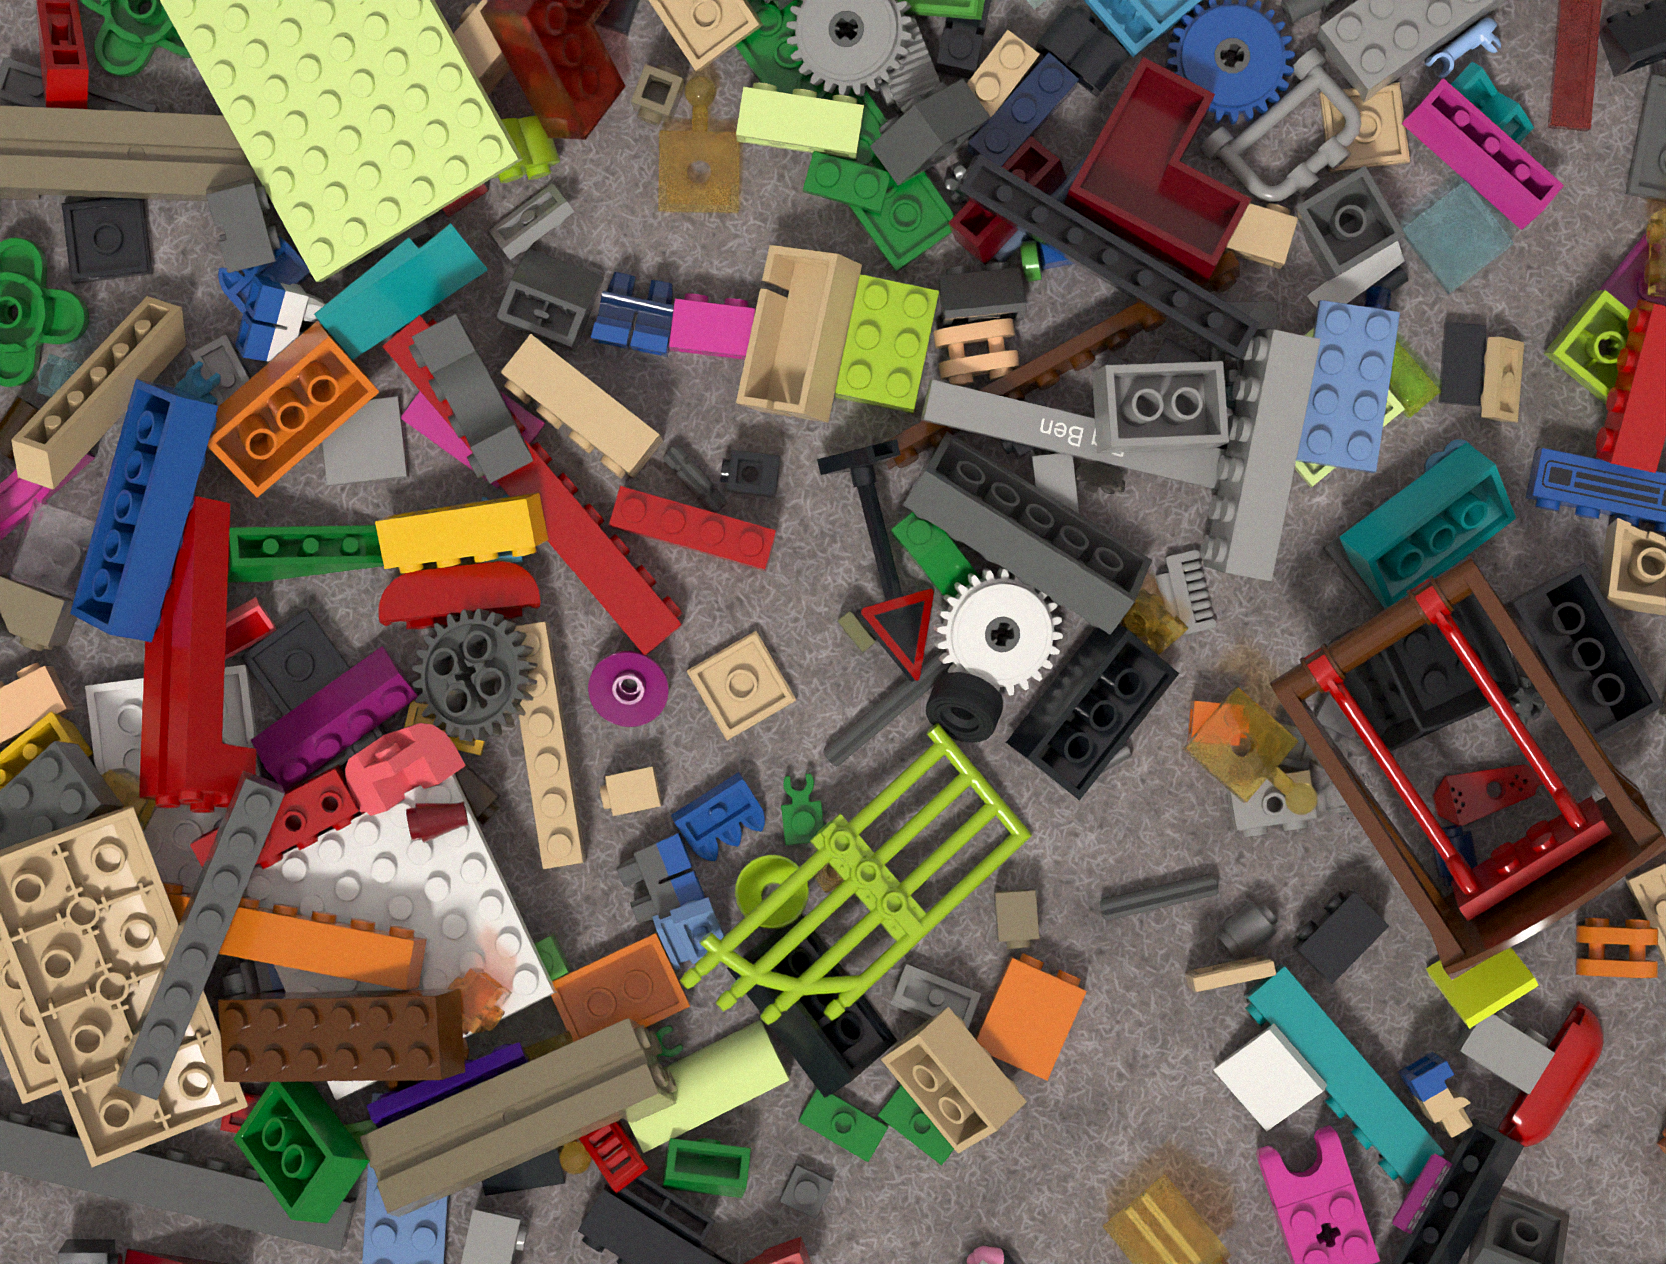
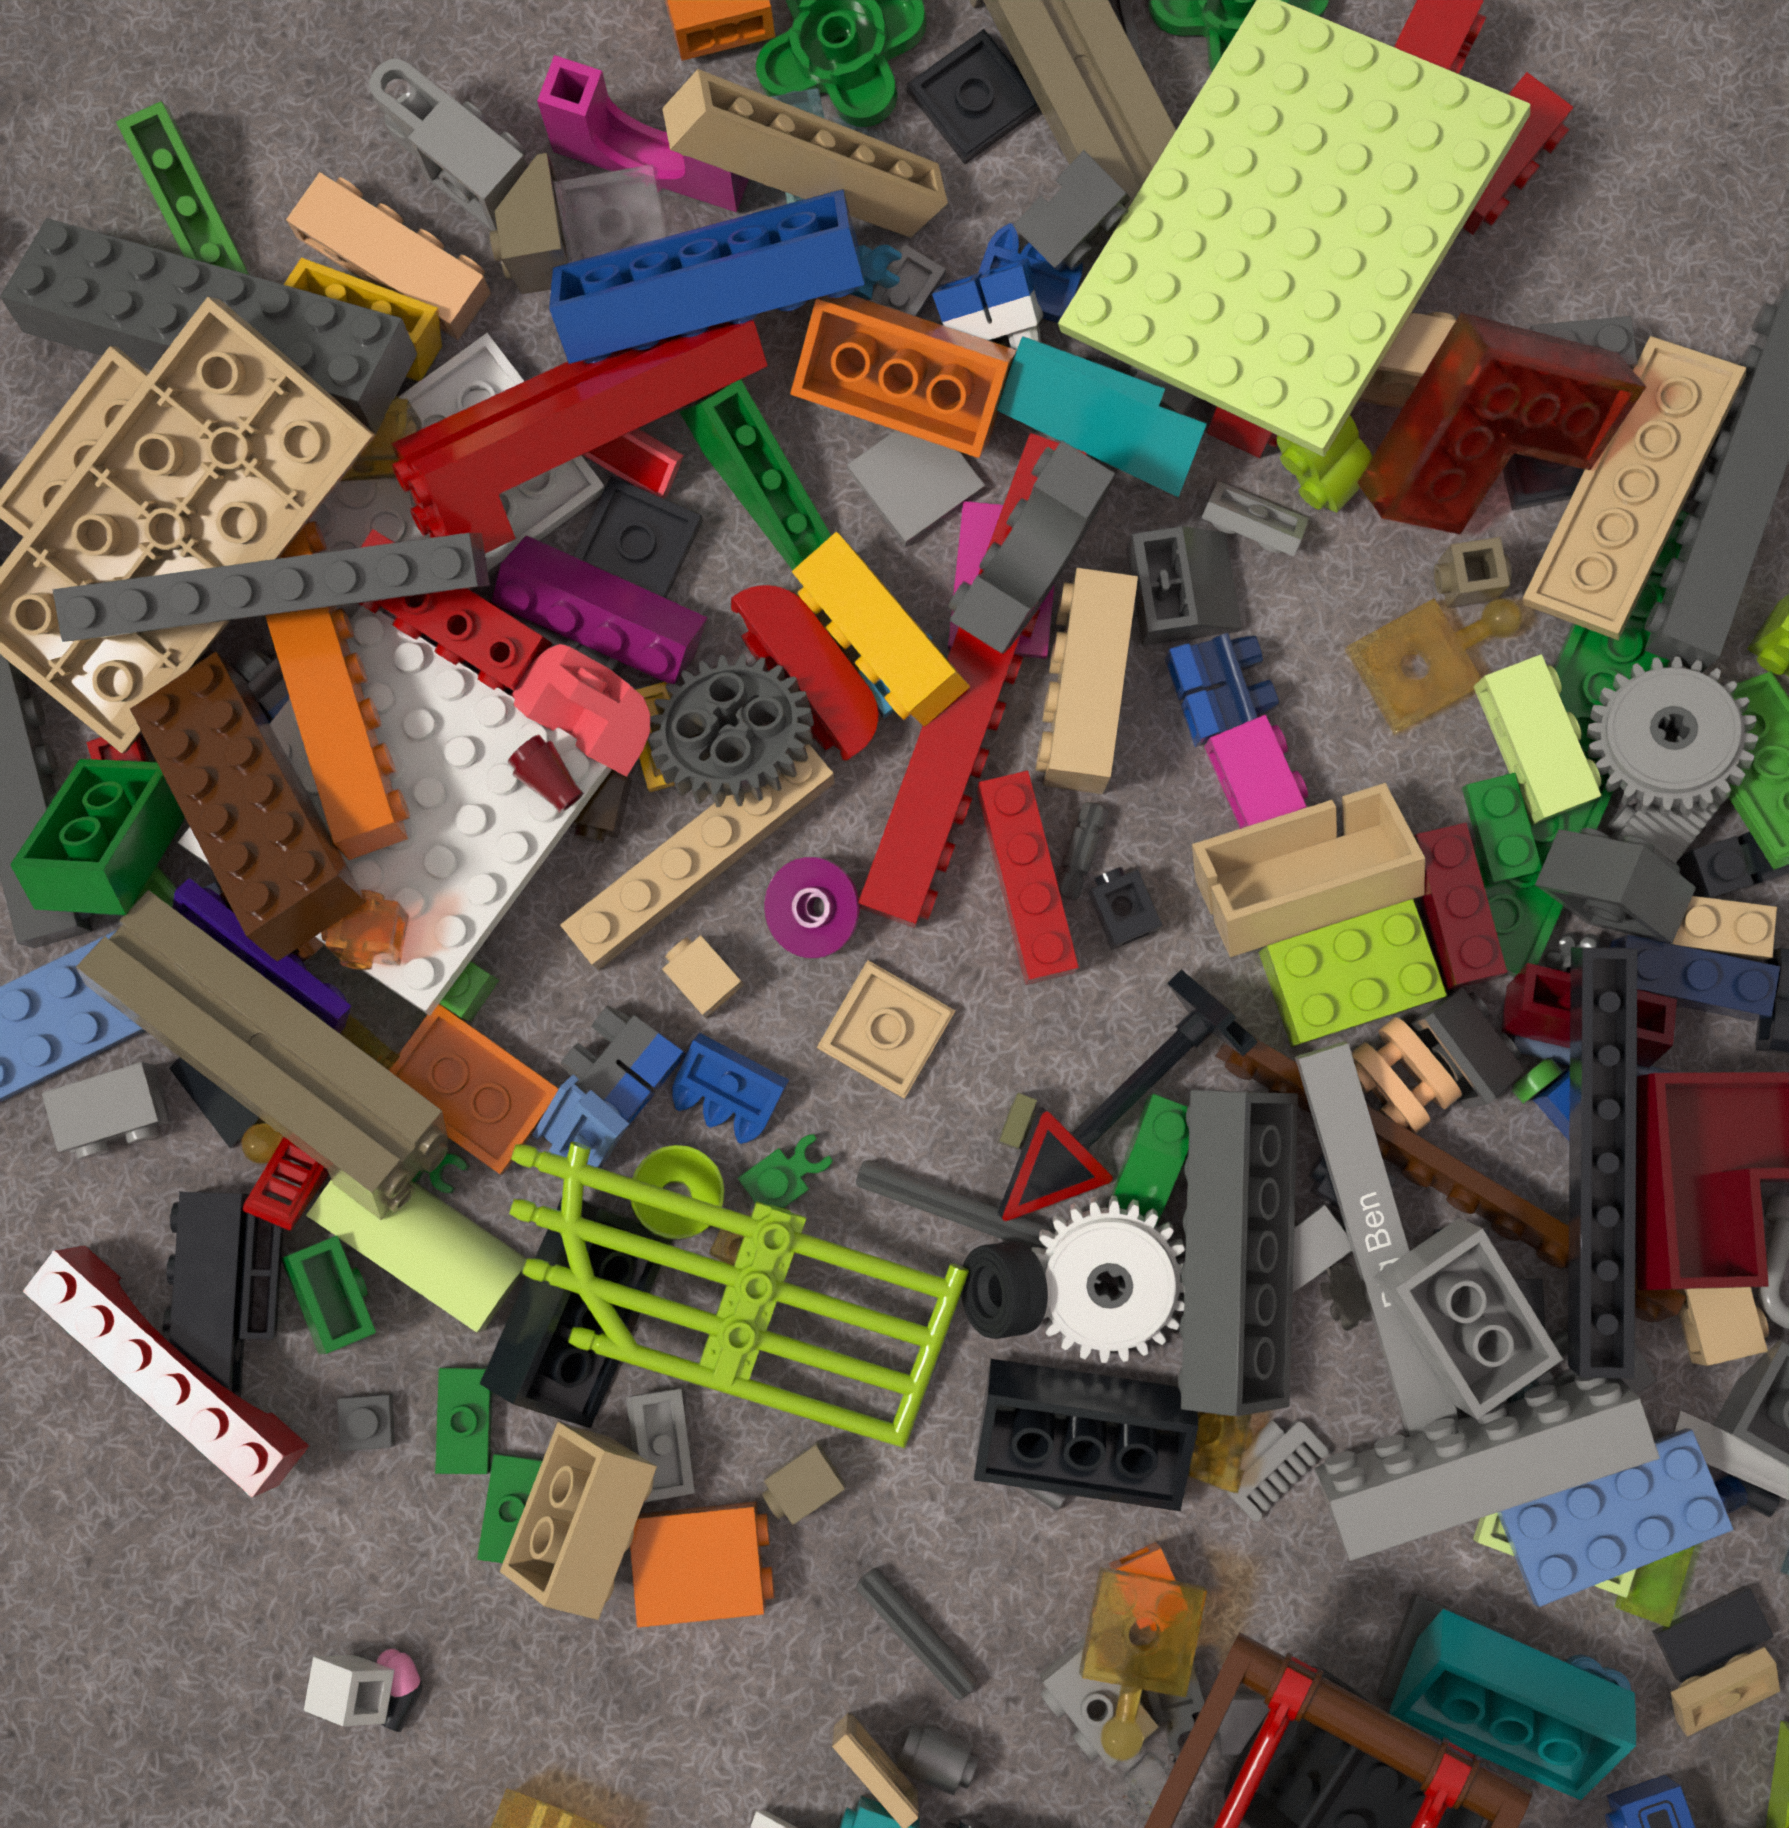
camera: 55 degrees right, 5 degrees down
(883, 248) = (1458, 909): none -> dark red brick

